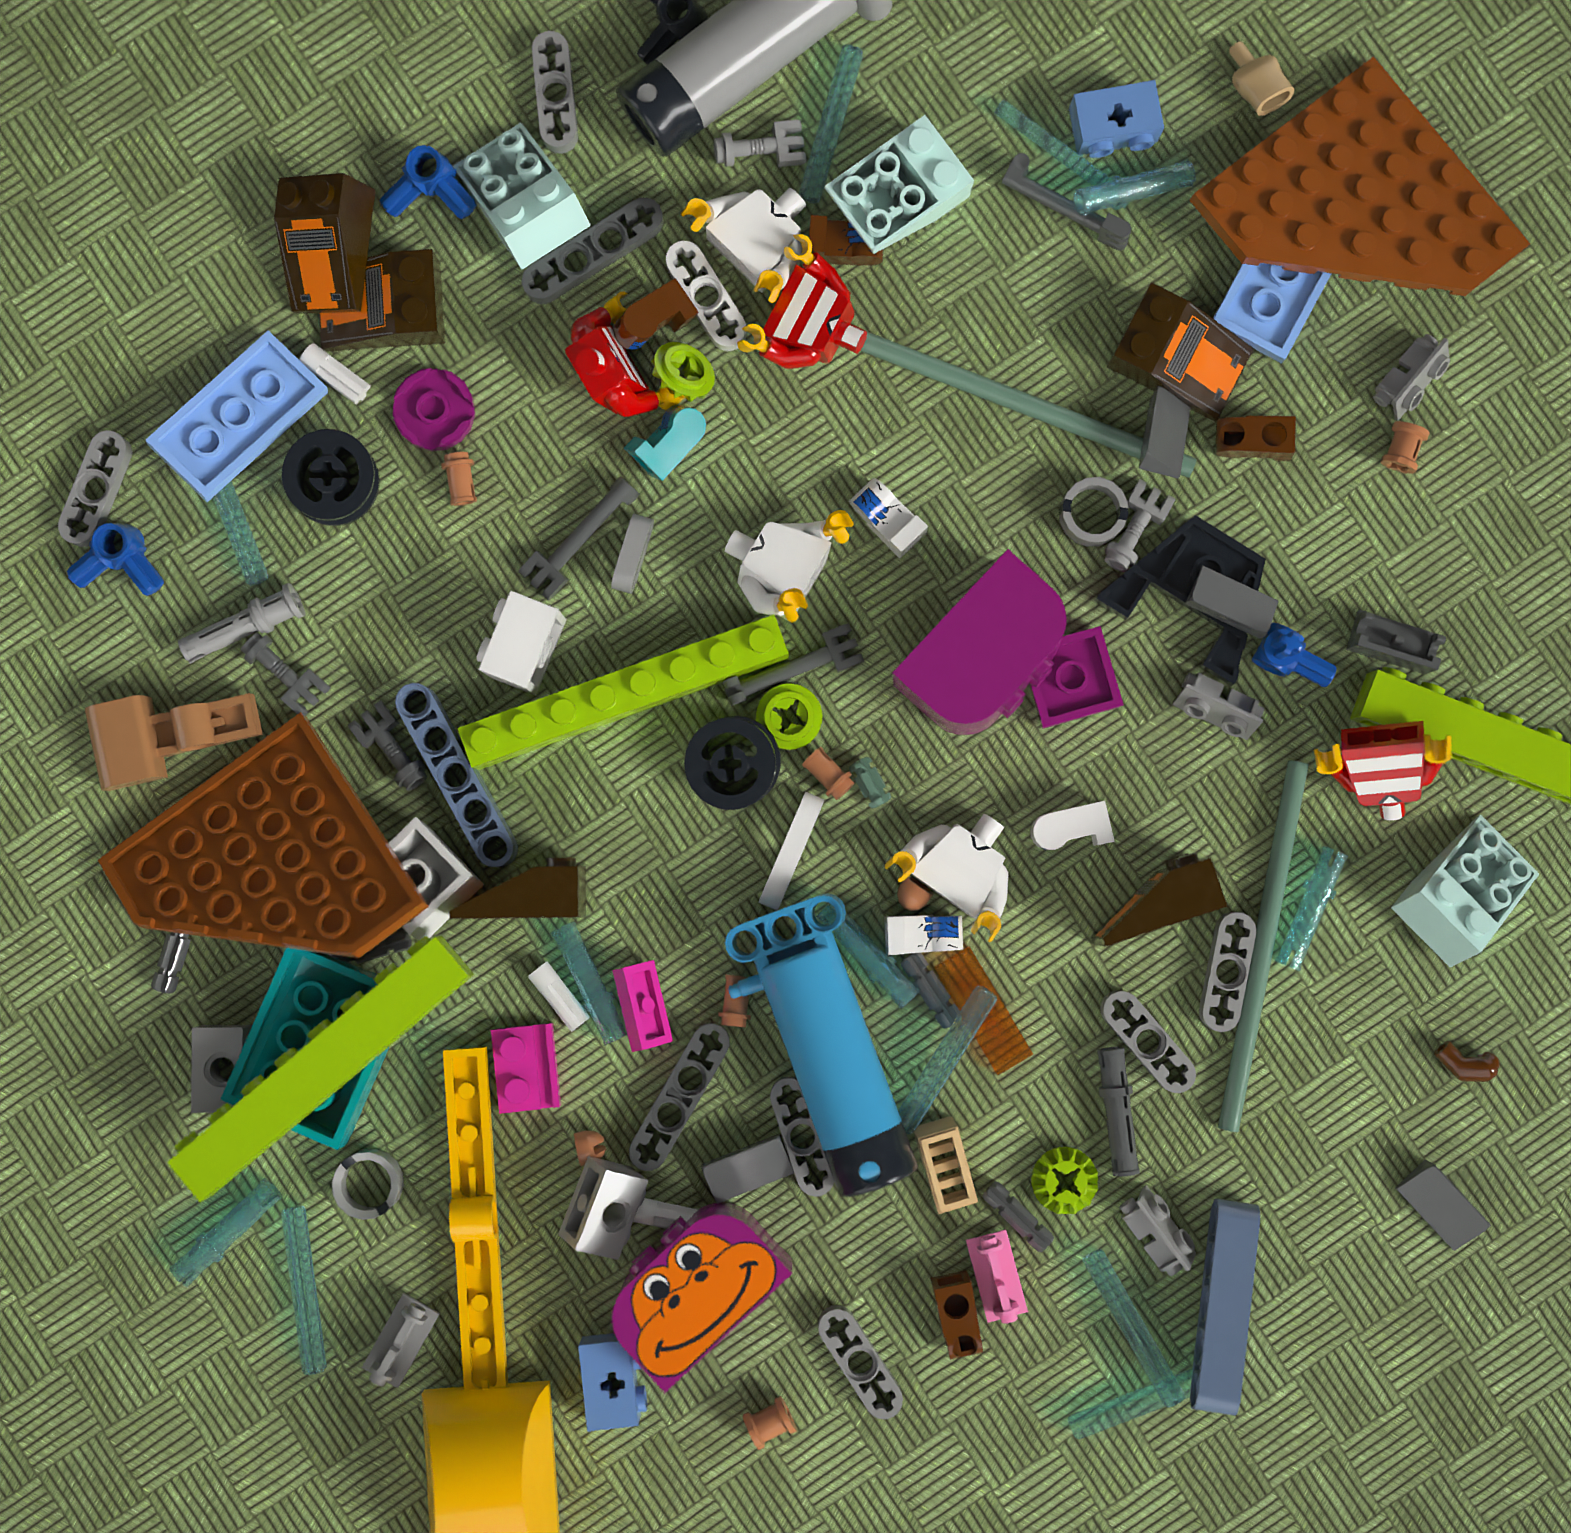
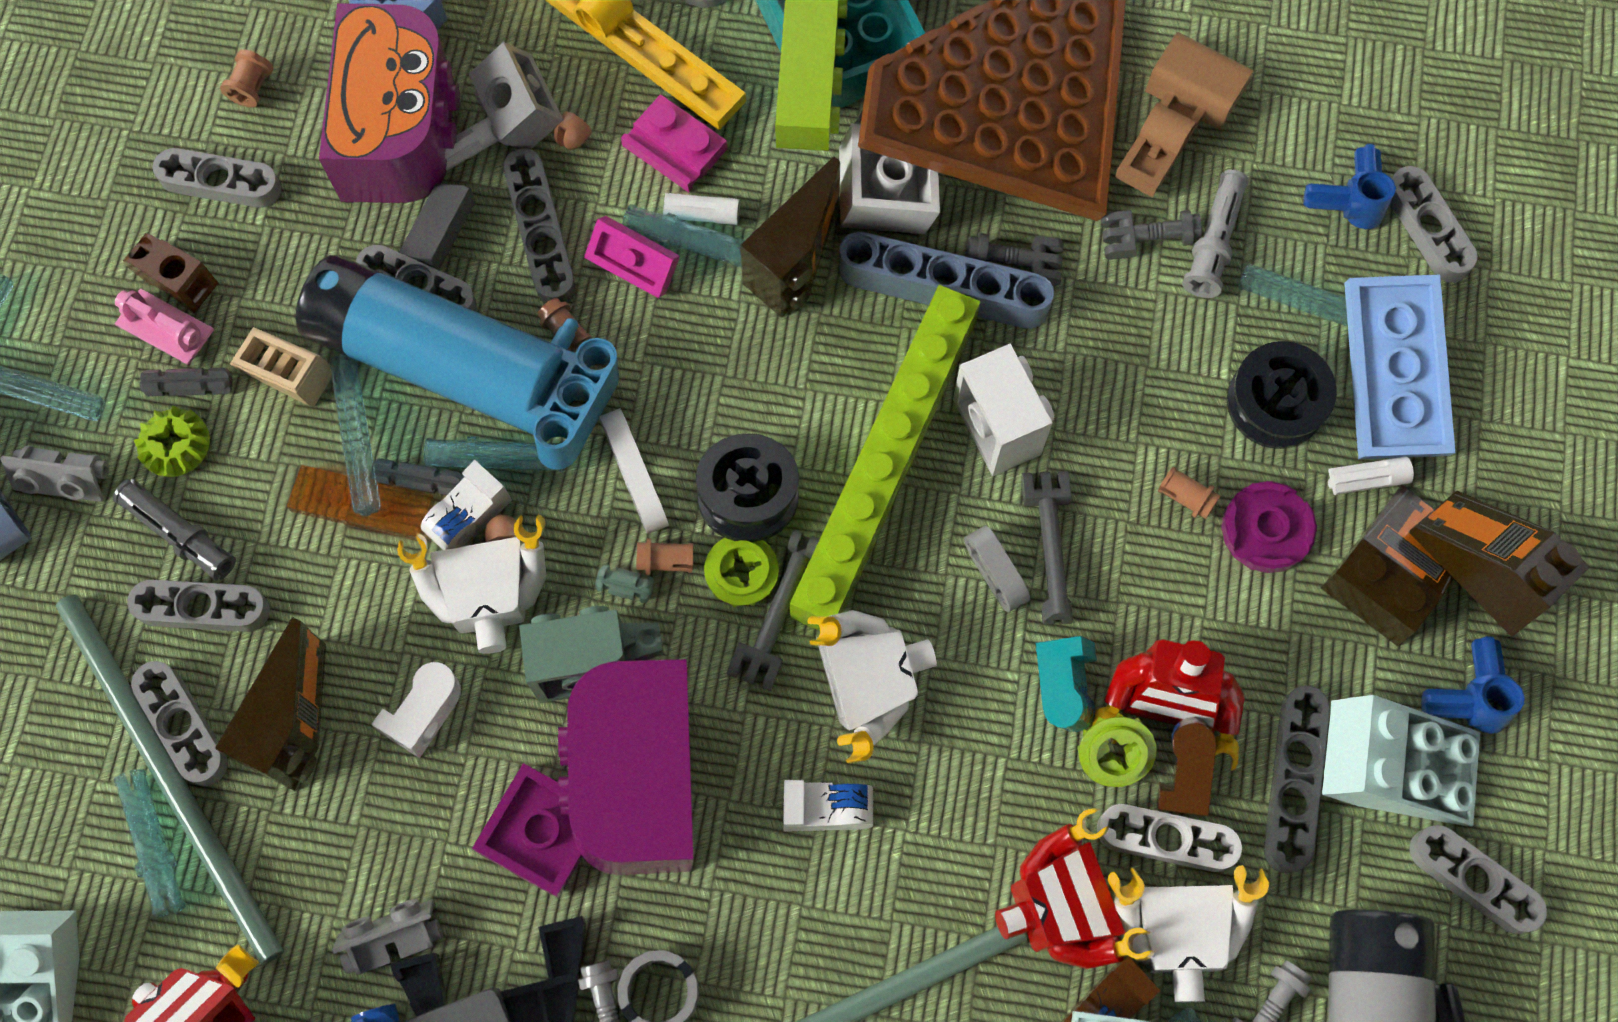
camera: 135 degrees right, 15 degrees down
(941, 751) = (564, 649): none -> sand green hinge

